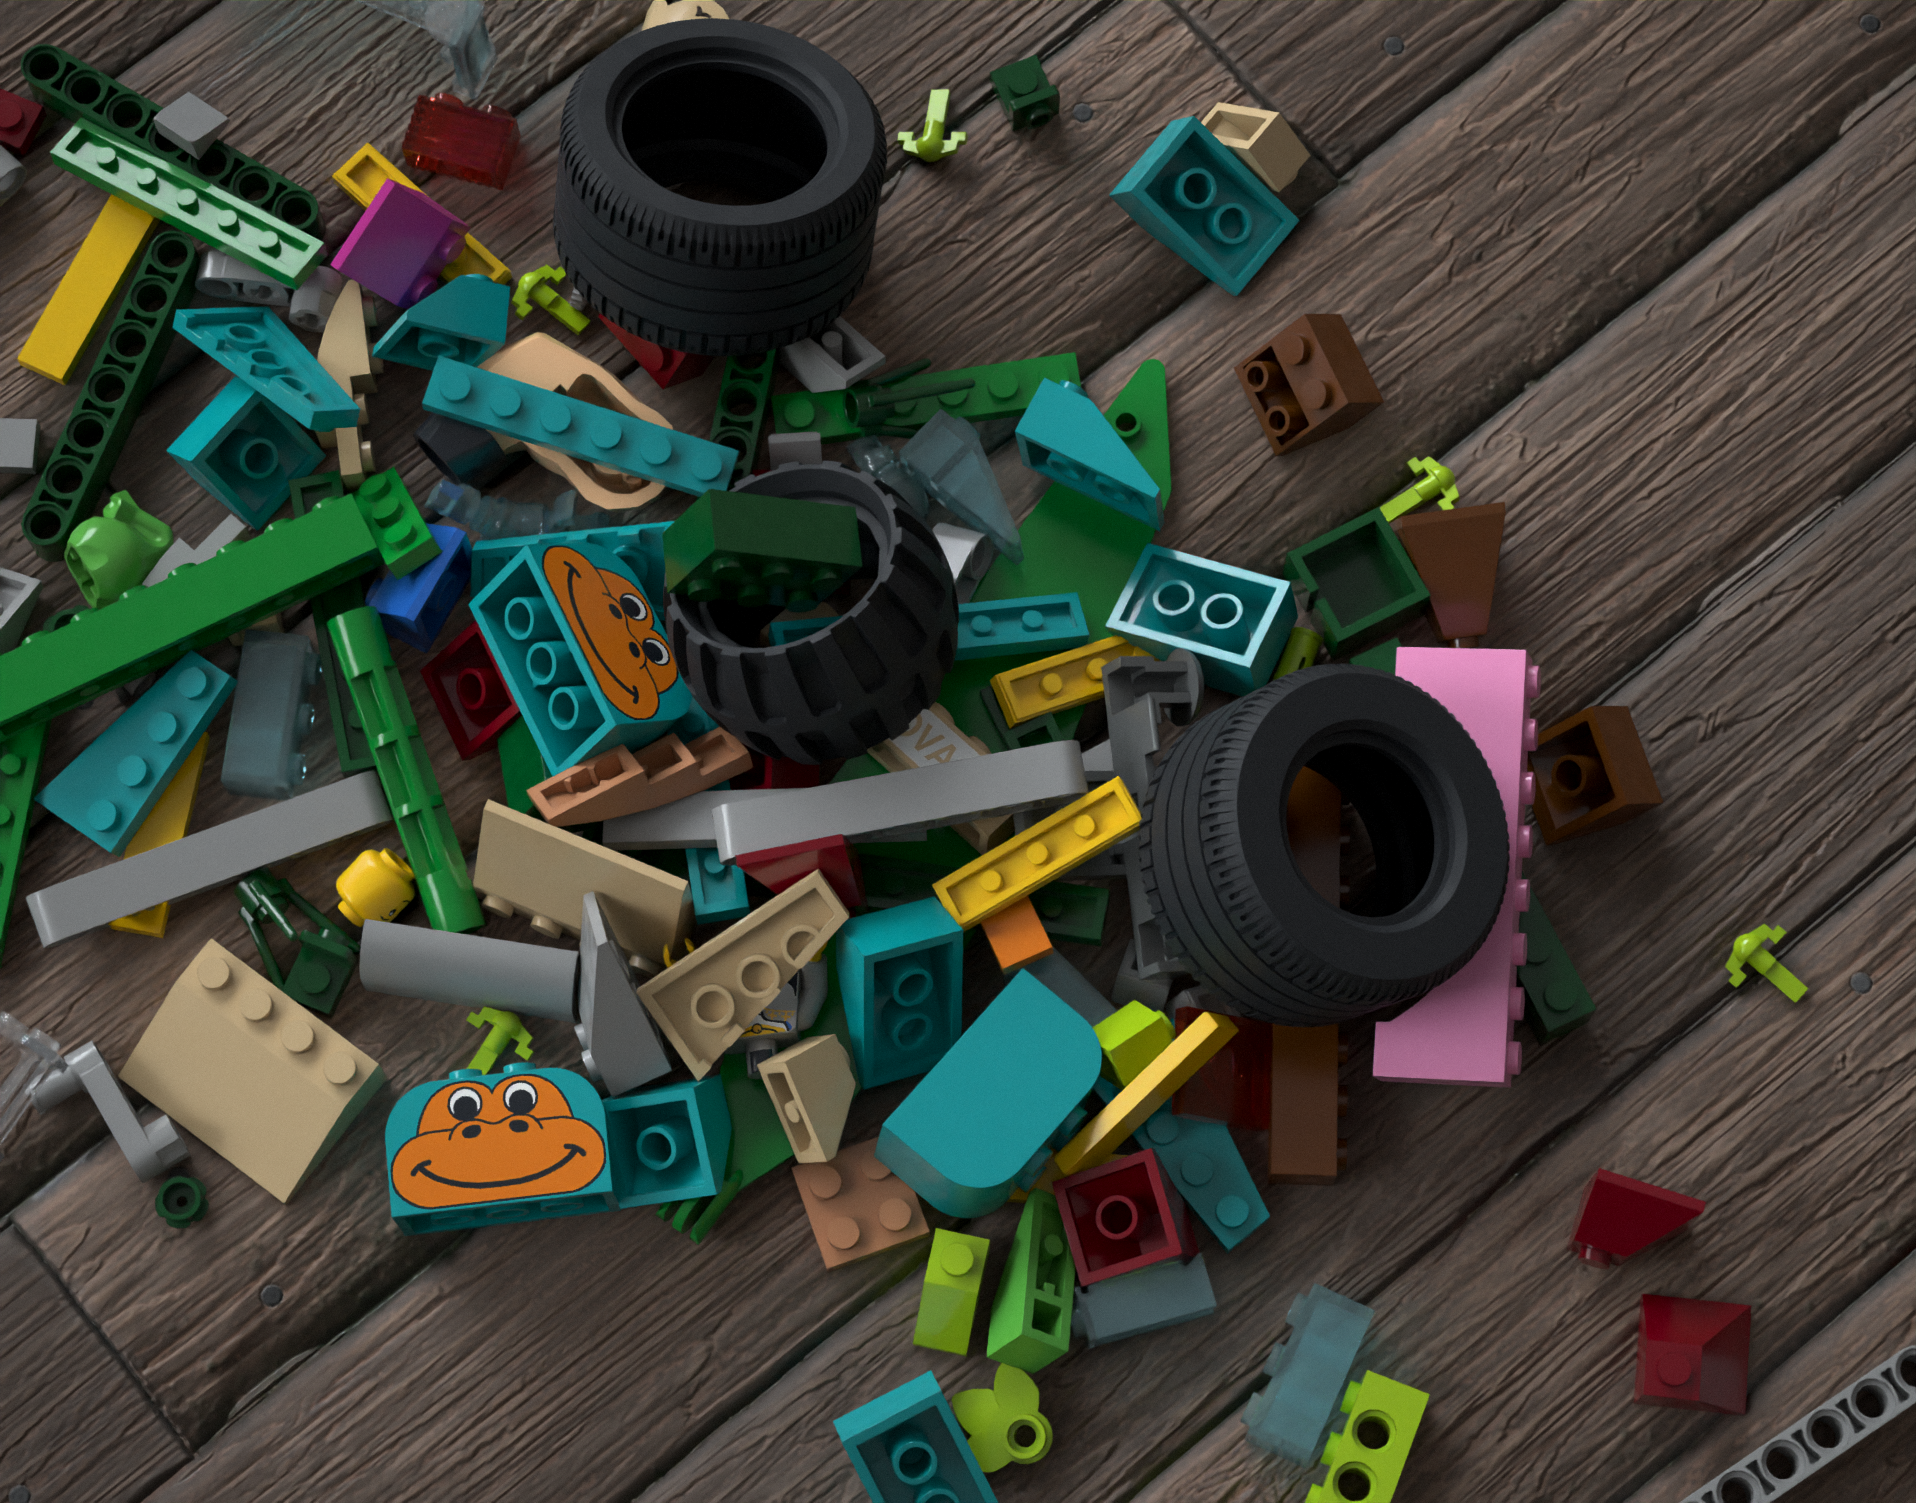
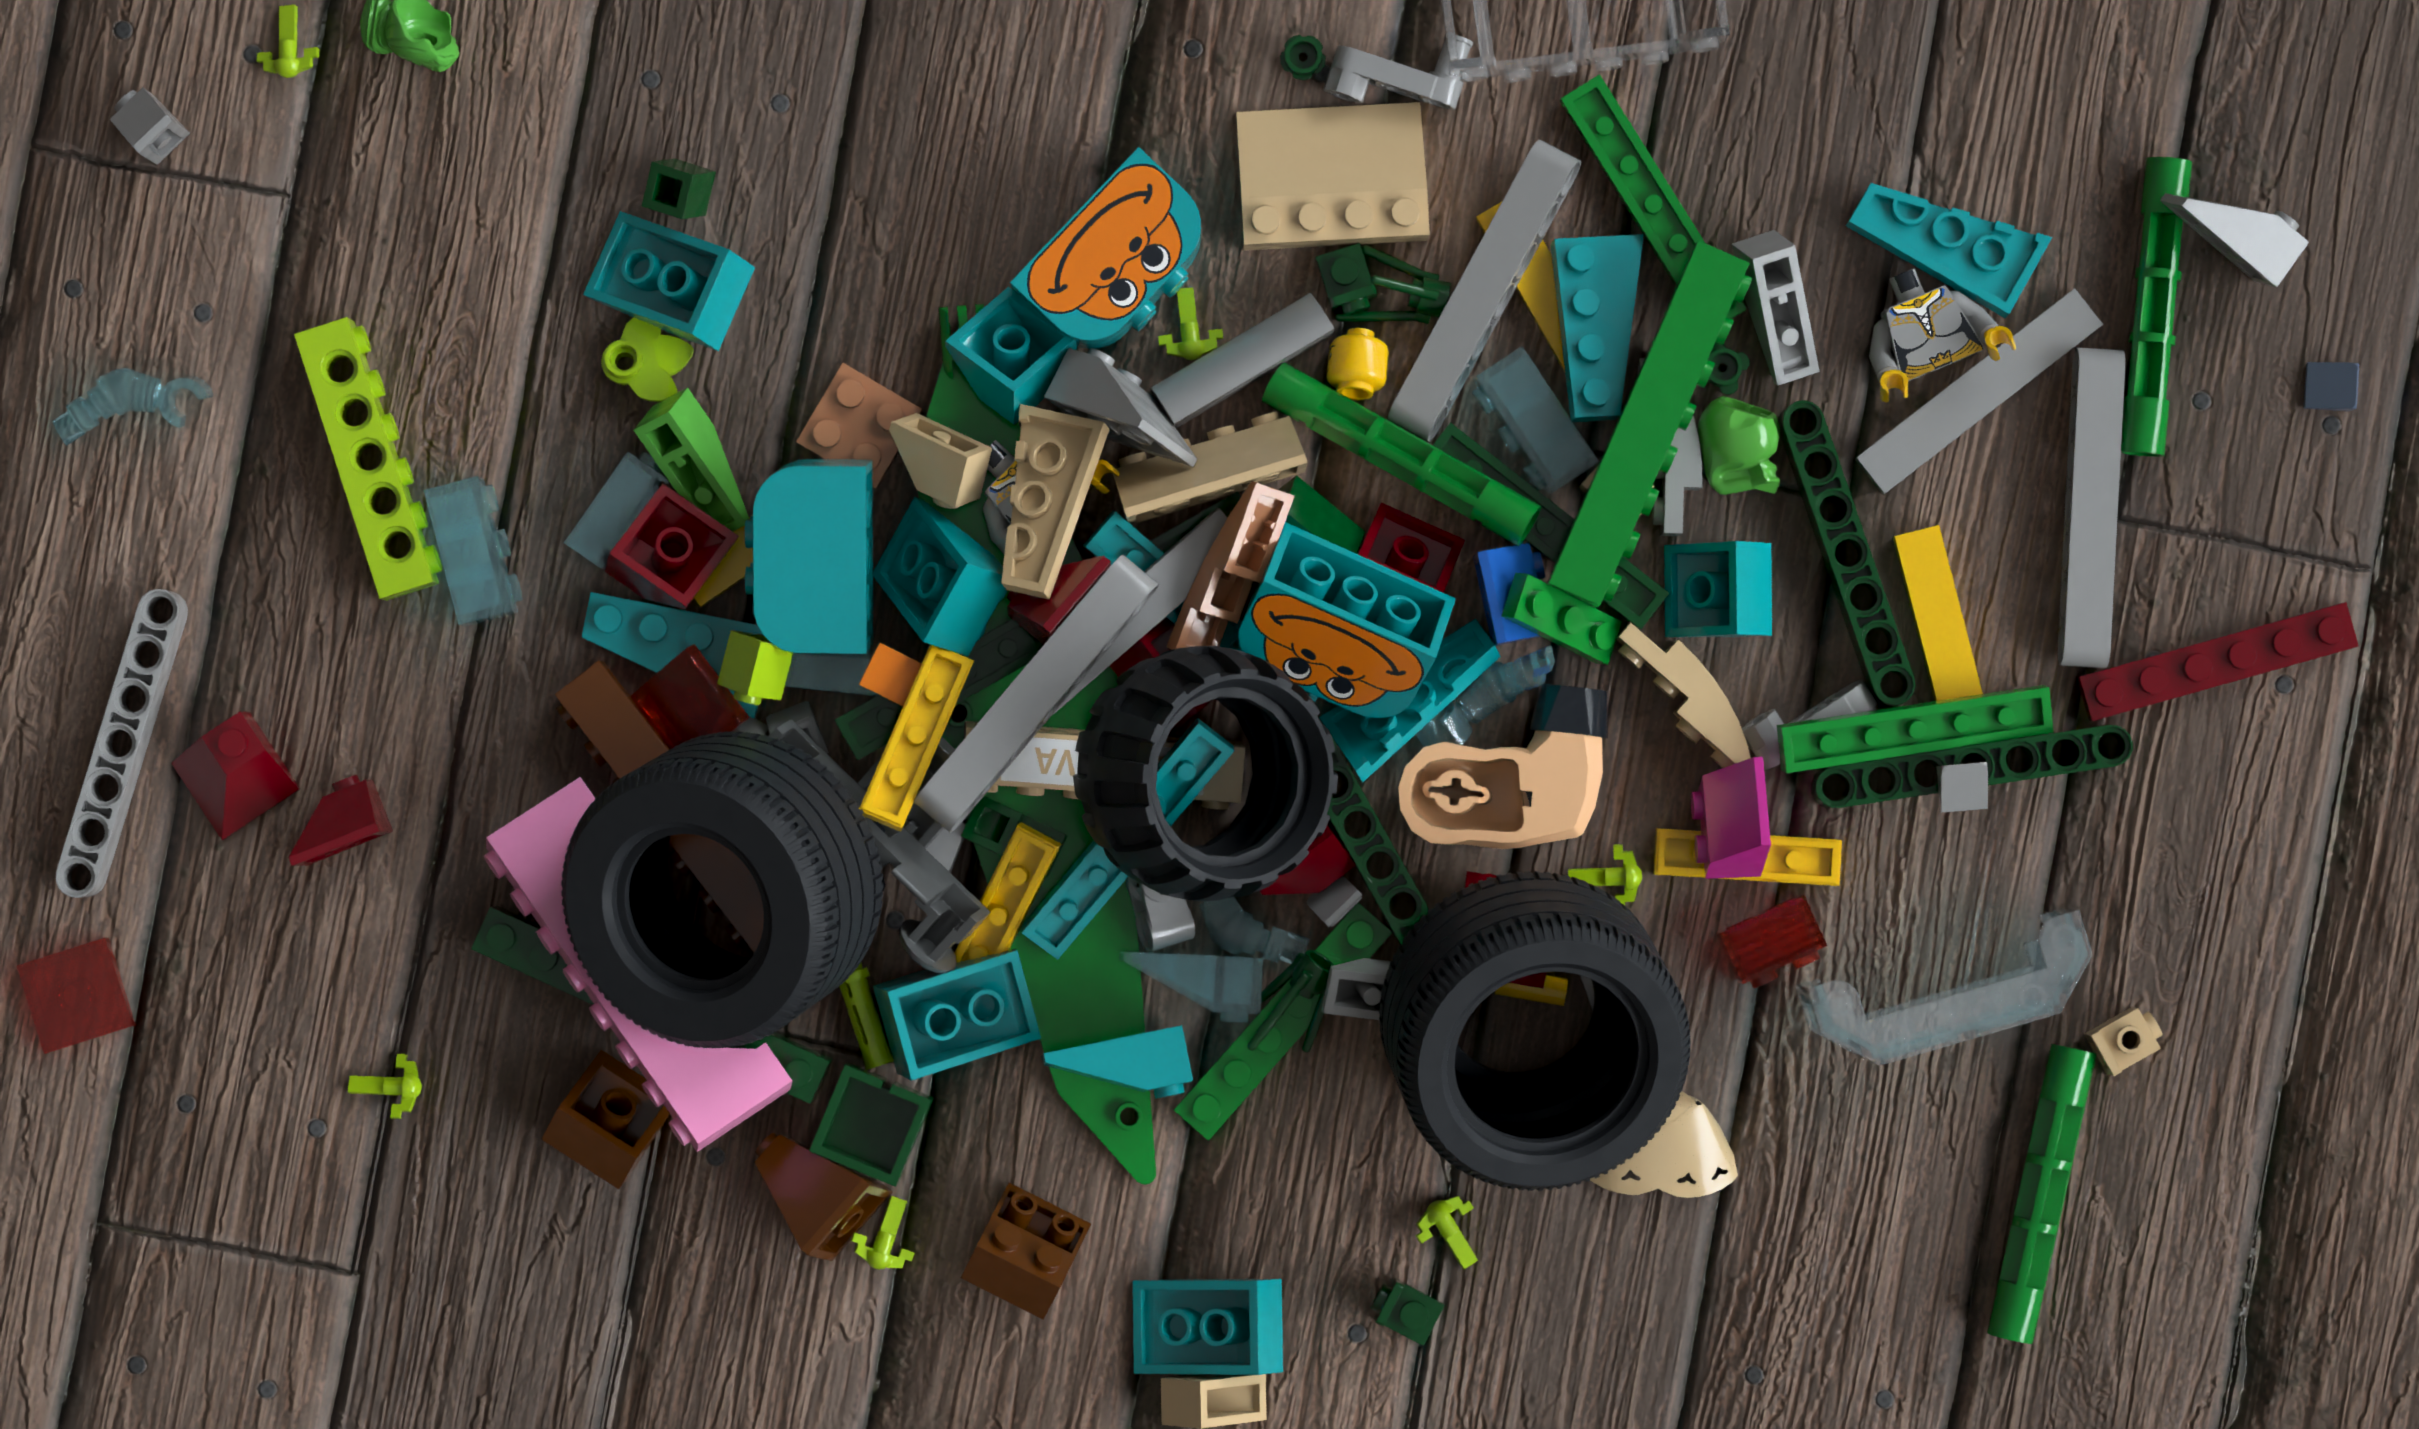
camera: 135 degrees right, 15 degrees up
(272, 361) = (1748, 660): teal wing -> none
(456, 322) = (1646, 791): teal slope -> none
(578, 428) = (1487, 784): teal plate -> none
(761, 550) = (1259, 773): dark green brick -> none
(951, 1292) = (748, 414): lime slope -> none
(1146, 1093) = (718, 639): yellow tile -> none

